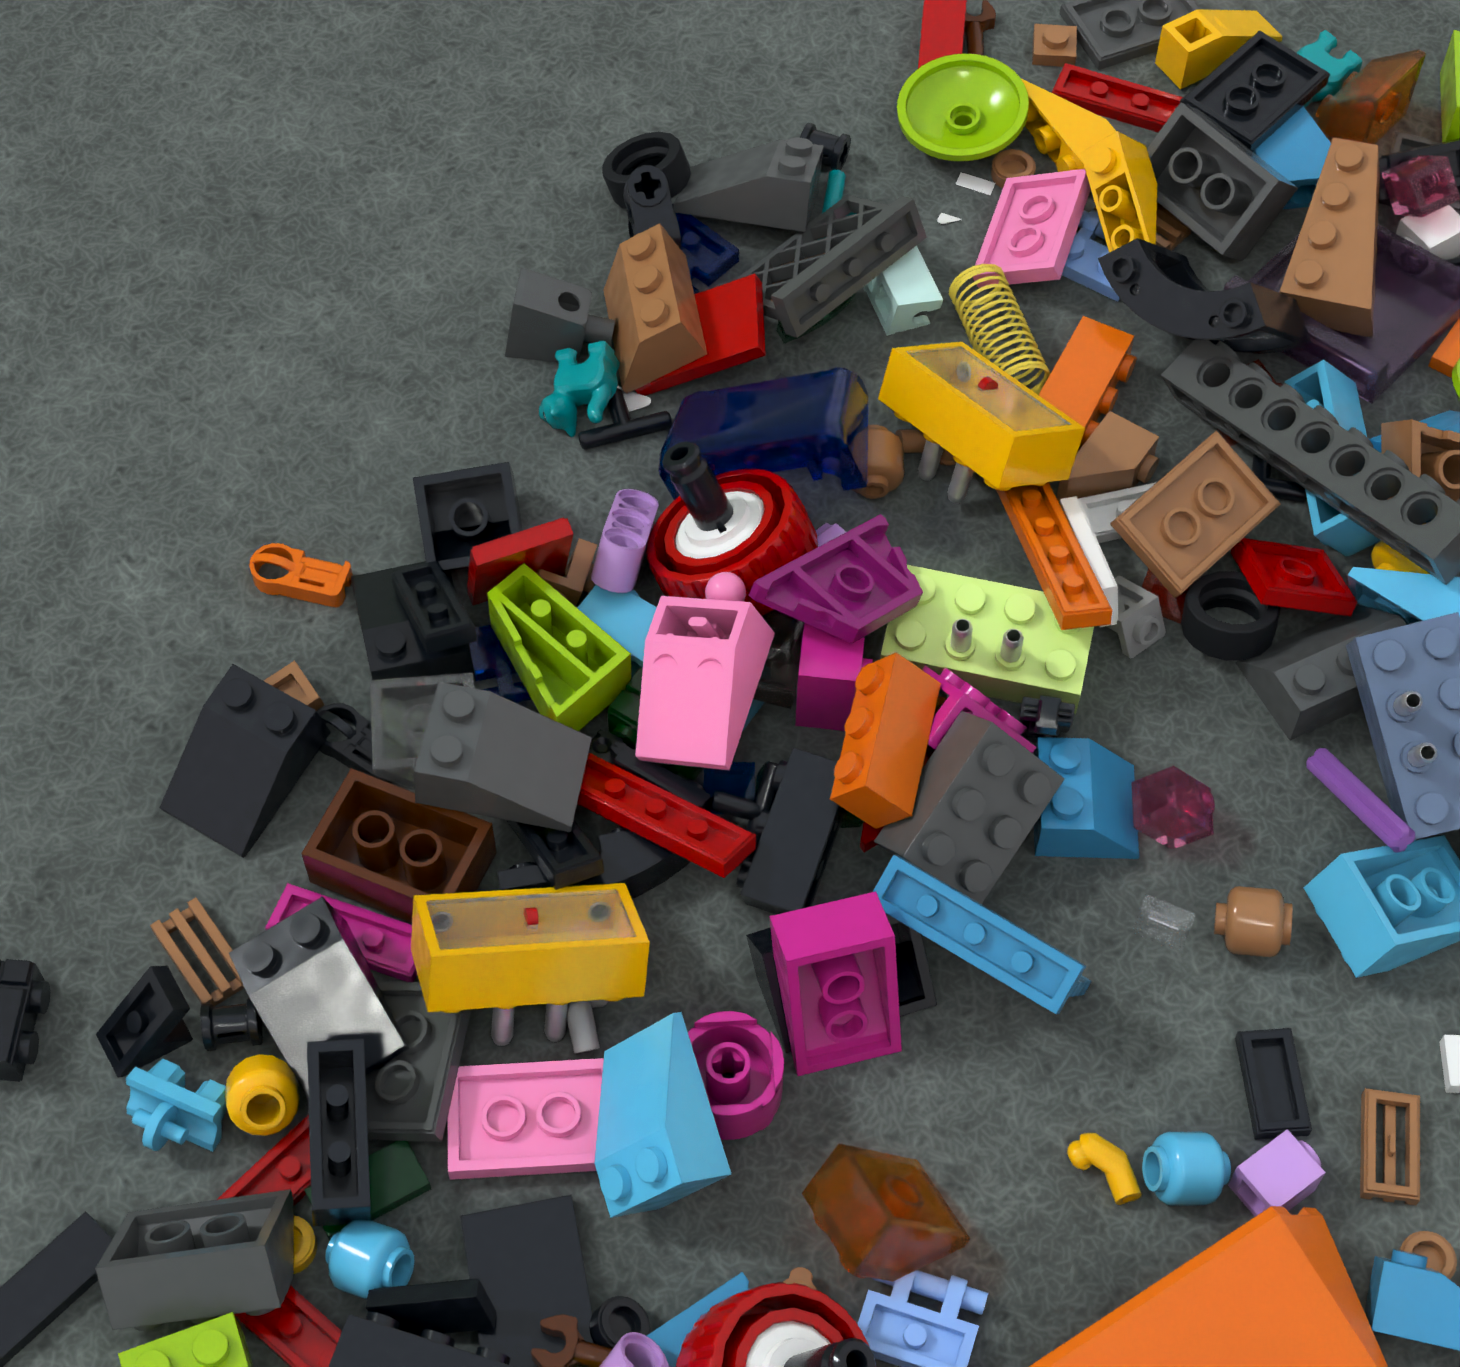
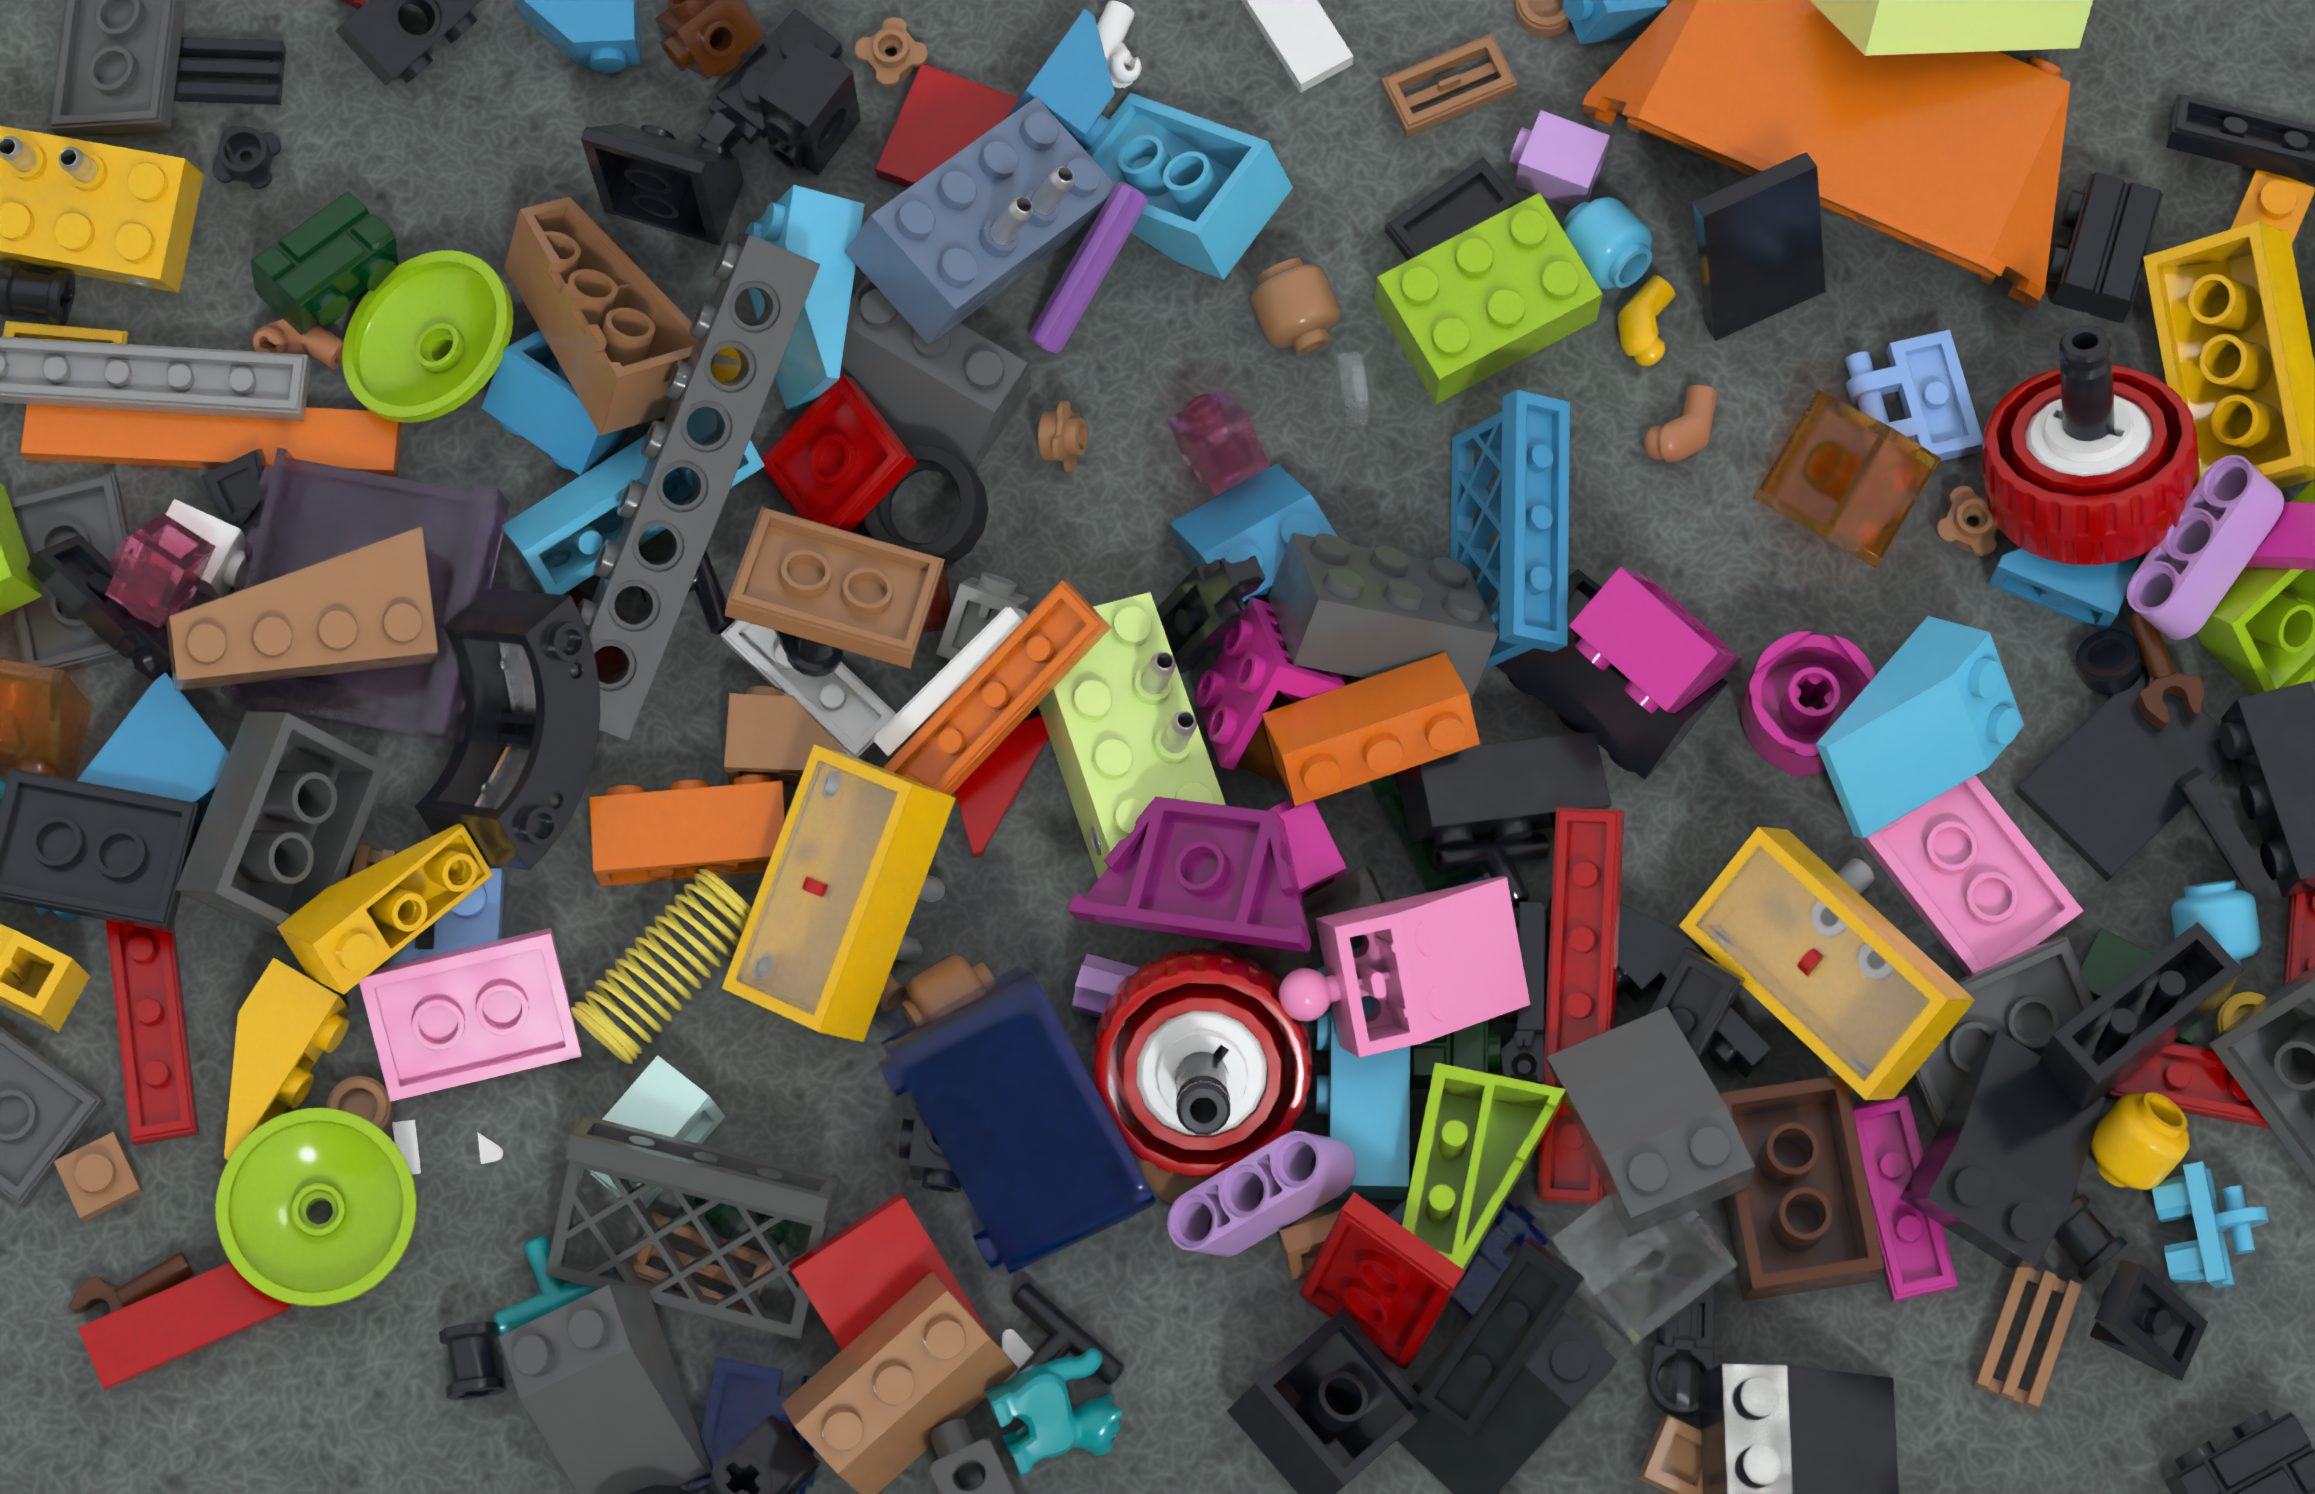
camera: 120 degrees left, 15 degrees up
(995, 1140) = (1687, 433): none -> nougat arm
(1003, 559) = (998, 781): none -> red tile
(1111, 1246) = (1760, 246): none -> black tile
(1187, 1052) = (1487, 298): none -> lime brick
(1237, 727) = (1062, 436): none -> medium nougat plate

